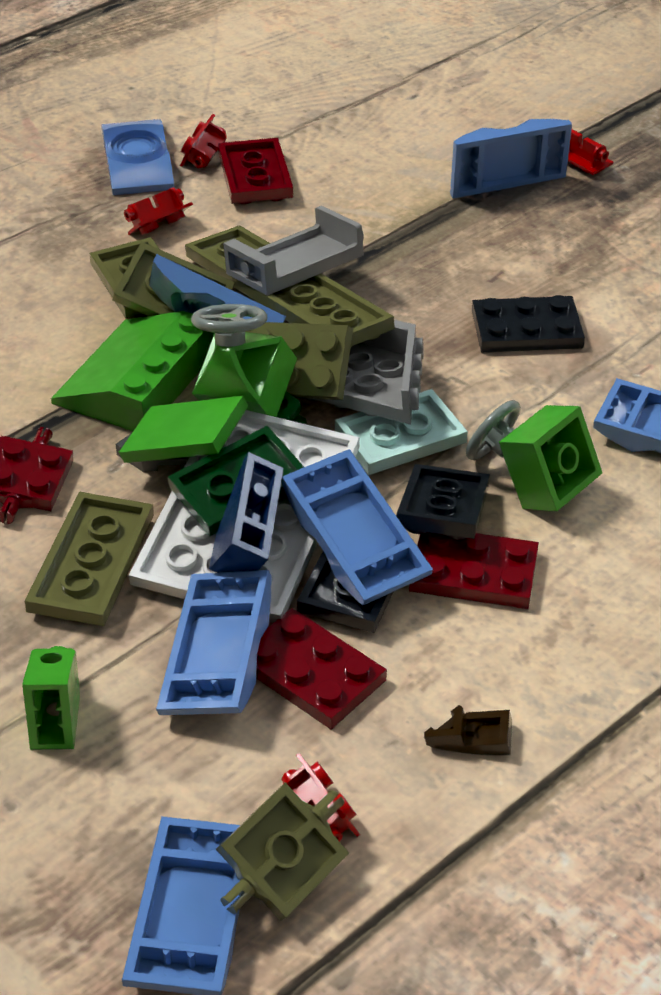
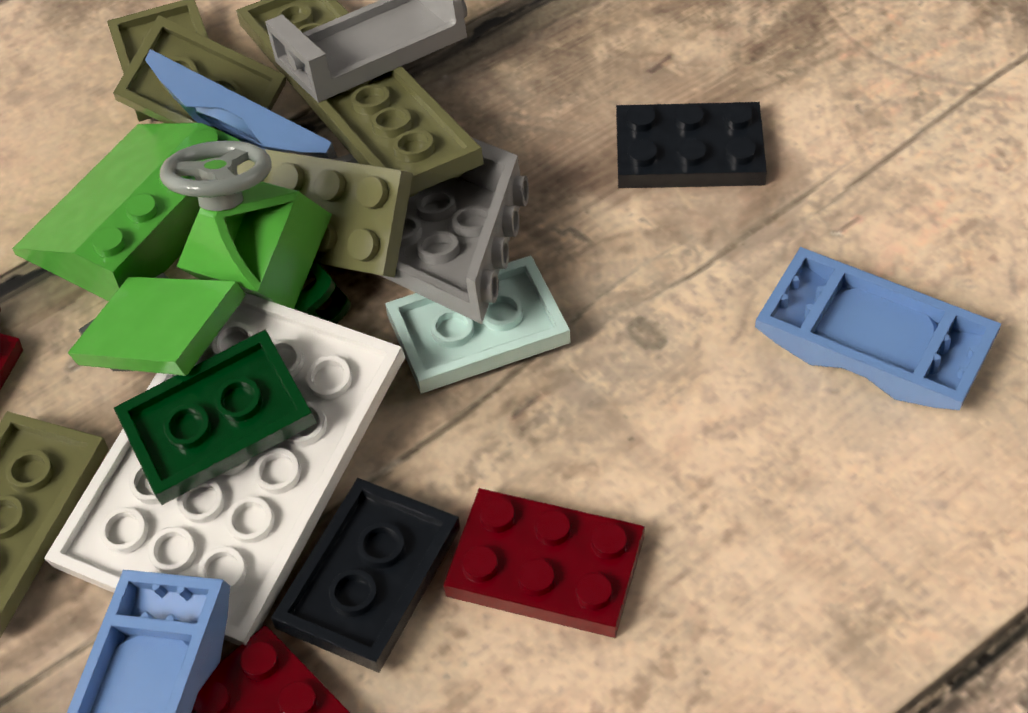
camera: 10 degrees right, 10 degrees up
(249, 518) = (208, 488): dark blue slope -> none
(354, 527) = (367, 506): medium blue slope -> none
(443, 501) = (511, 455): black plate -> none
(546, 455) = (670, 386): bright green piece -> none

